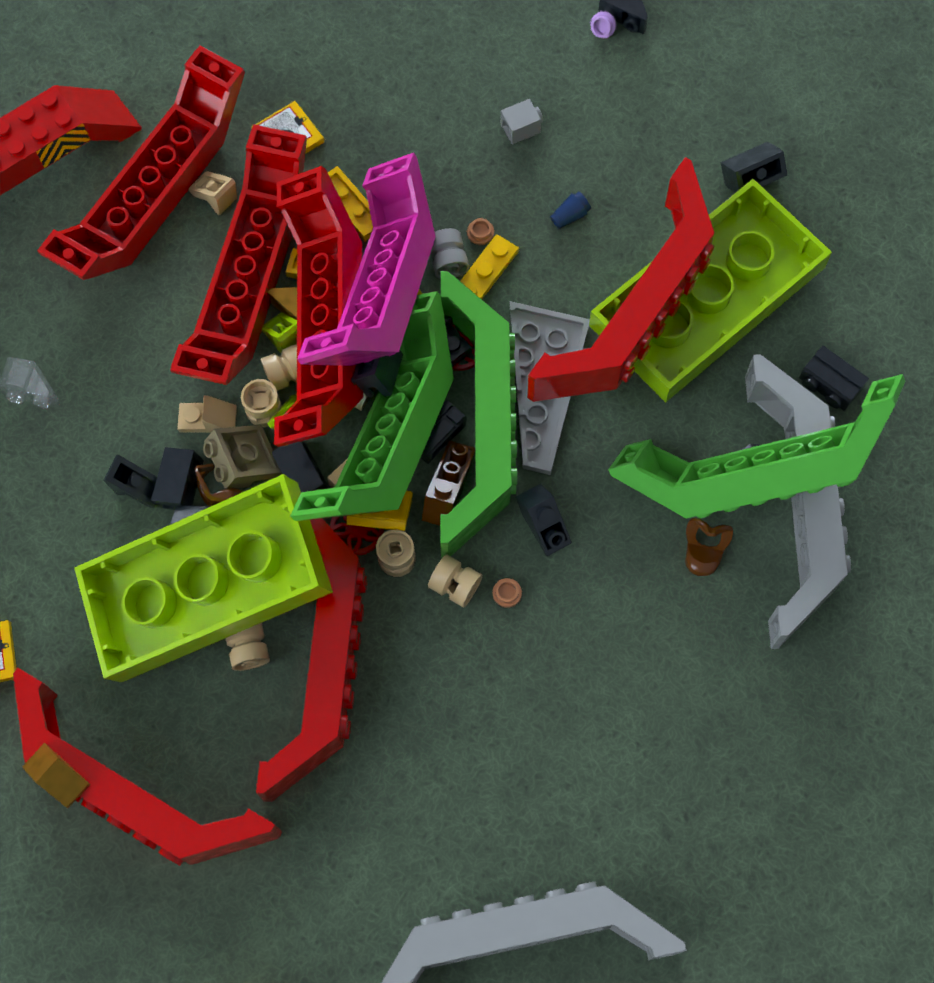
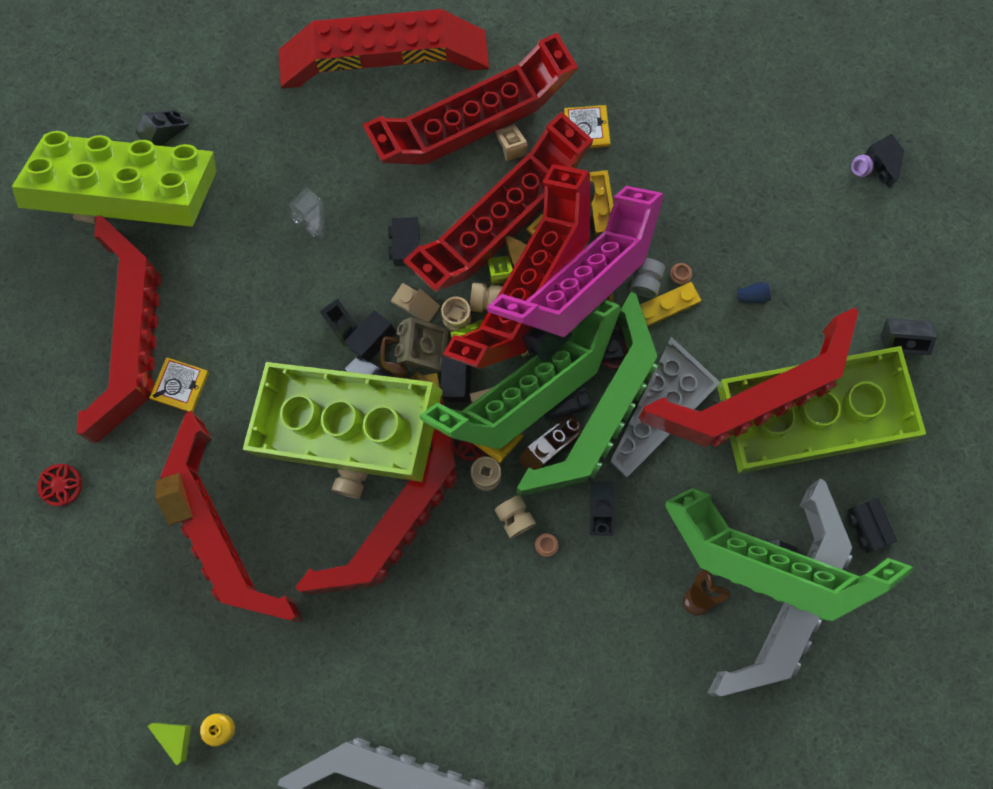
camera: 30 degrees right, 5 degrees up
(156, 355) = (405, 238): none -> black brick
(521, 121) = (758, 207): light grey brick -> none

